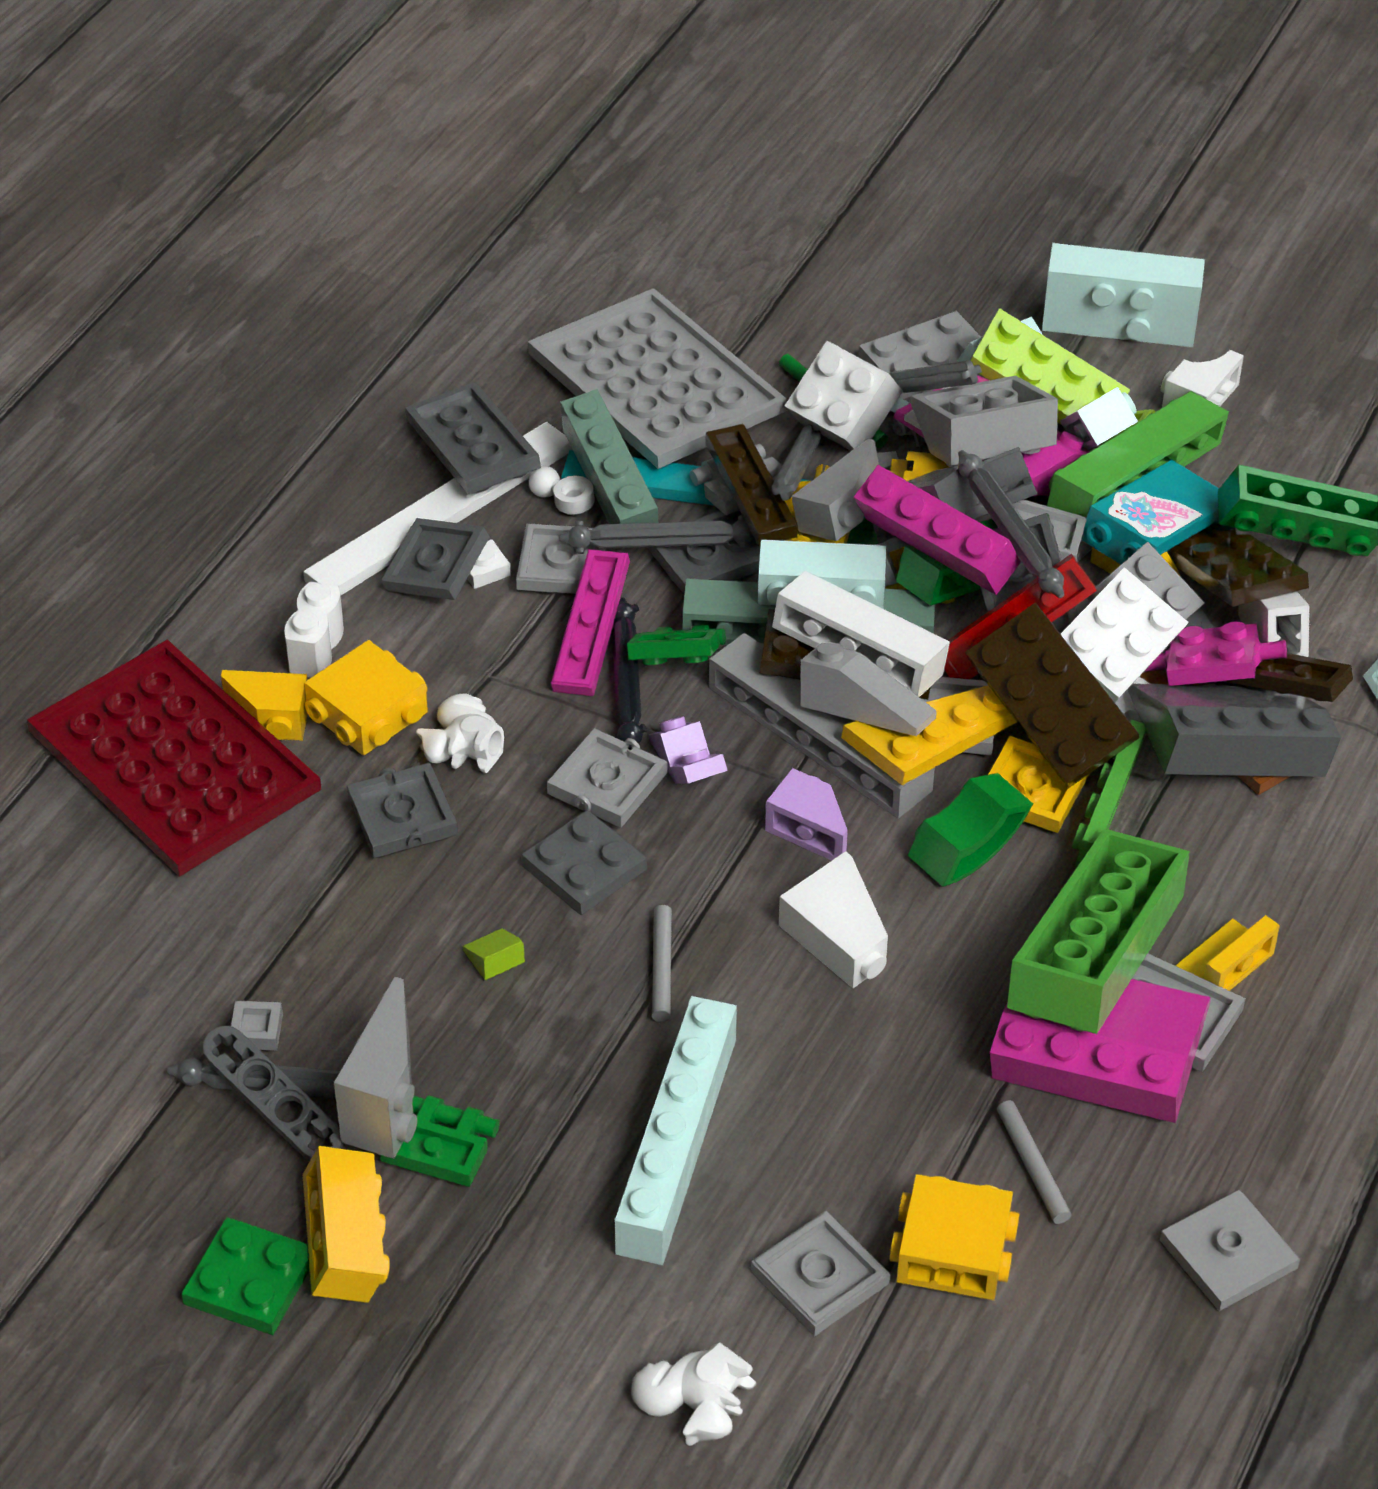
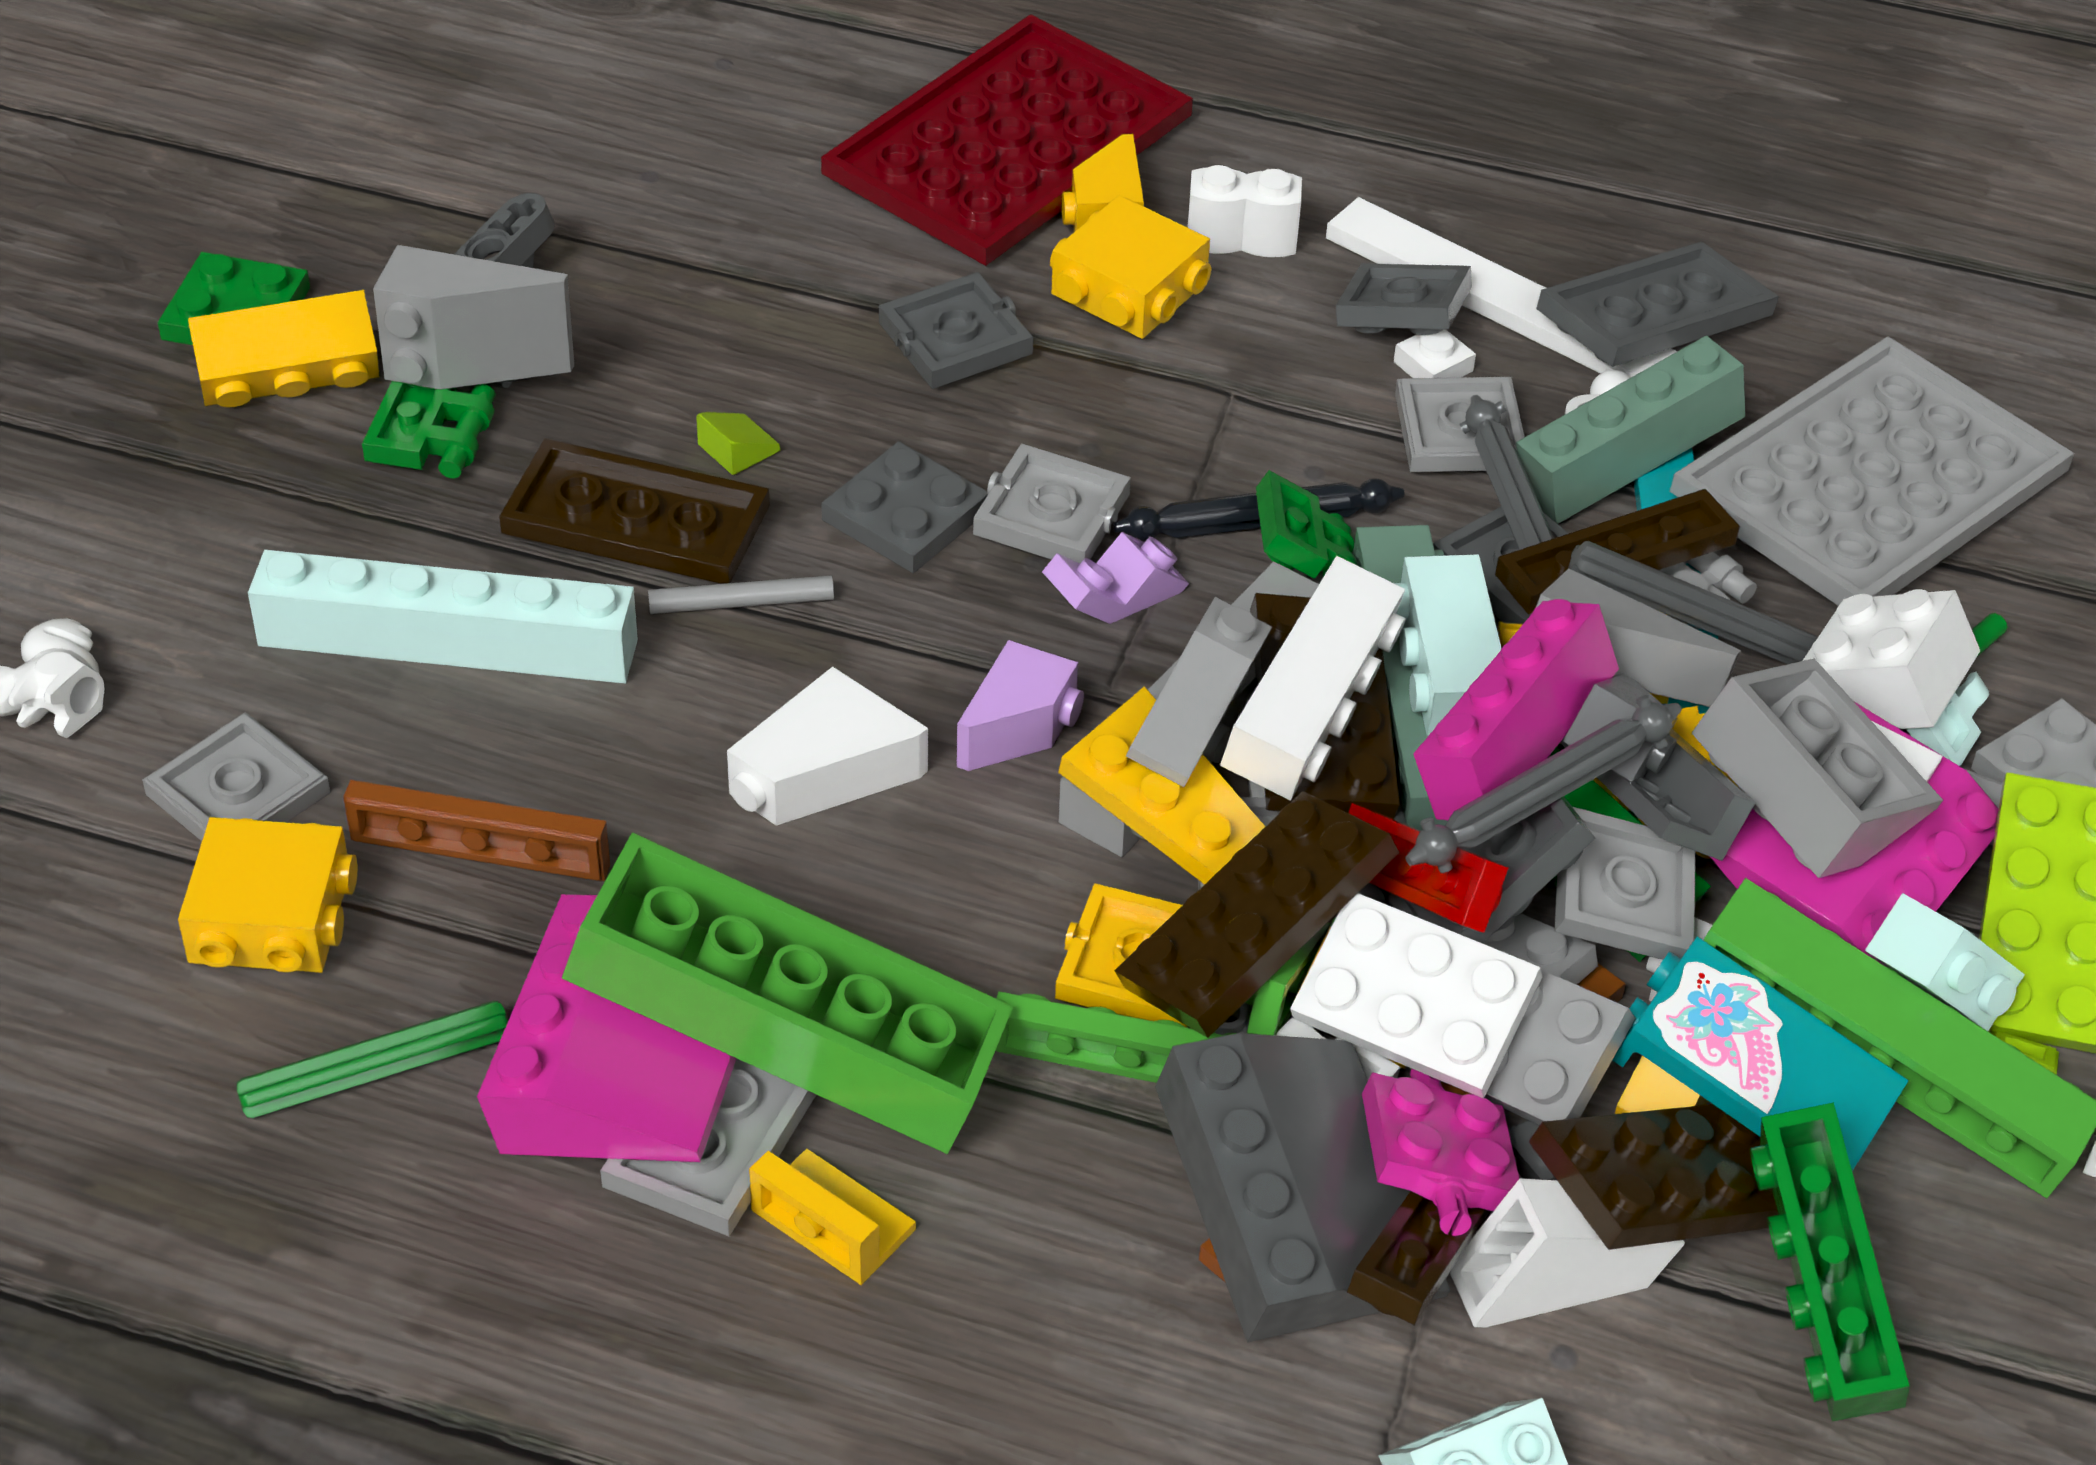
camera: 80 degrees right, 0 degrees up
(259, 1022) = (589, 255): light grey plate -> none
(466, 734) = (1096, 373): white animal -> none
(569, 1014) = (635, 511): none -> dark brown plate
(590, 622) = (1337, 454): dark pink tile -> none
(895, 1119) = (477, 830): none -> dark orange tile
(937, 376) = (1914, 714): dark grey axle -> none
(969, 829) = (1015, 875): green brick -> none
(1034, 1162) = (424, 995): light grey bar -> none
(1093, 1191) = (371, 1059): none -> axle
(1229, 1250) = (271, 1224): light grey plate -> none

